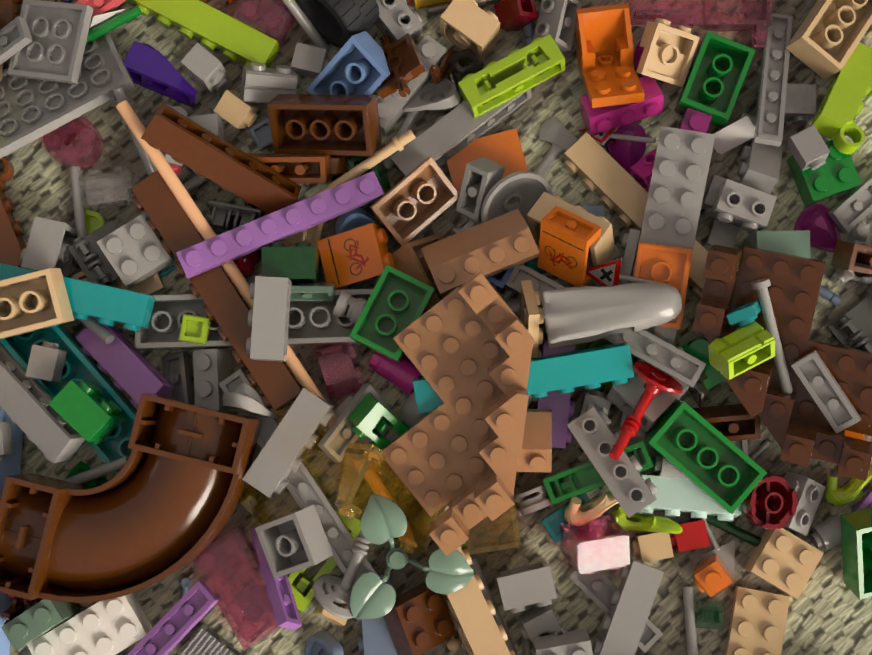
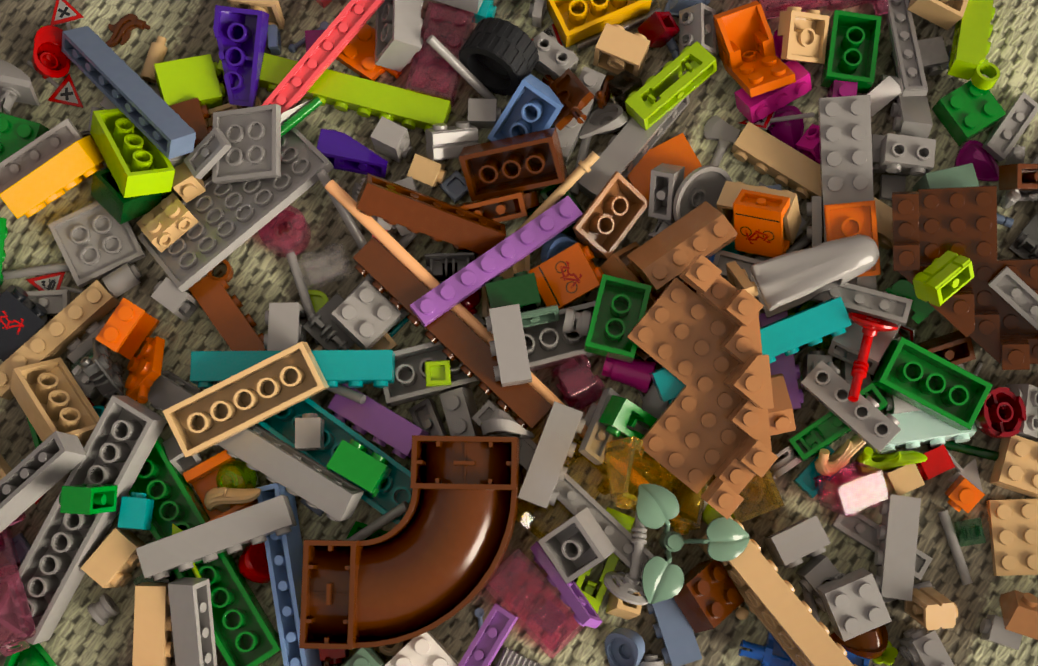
camera: 10 degrees left, 5 degrees down
(609, 274) = (805, 239): piece -> none
(744, 314) = (936, 247): teal plate -> none
(771, 326) = (944, 221): light grey bar -> none
(808, 148) = (952, 92): light grey brick -> none

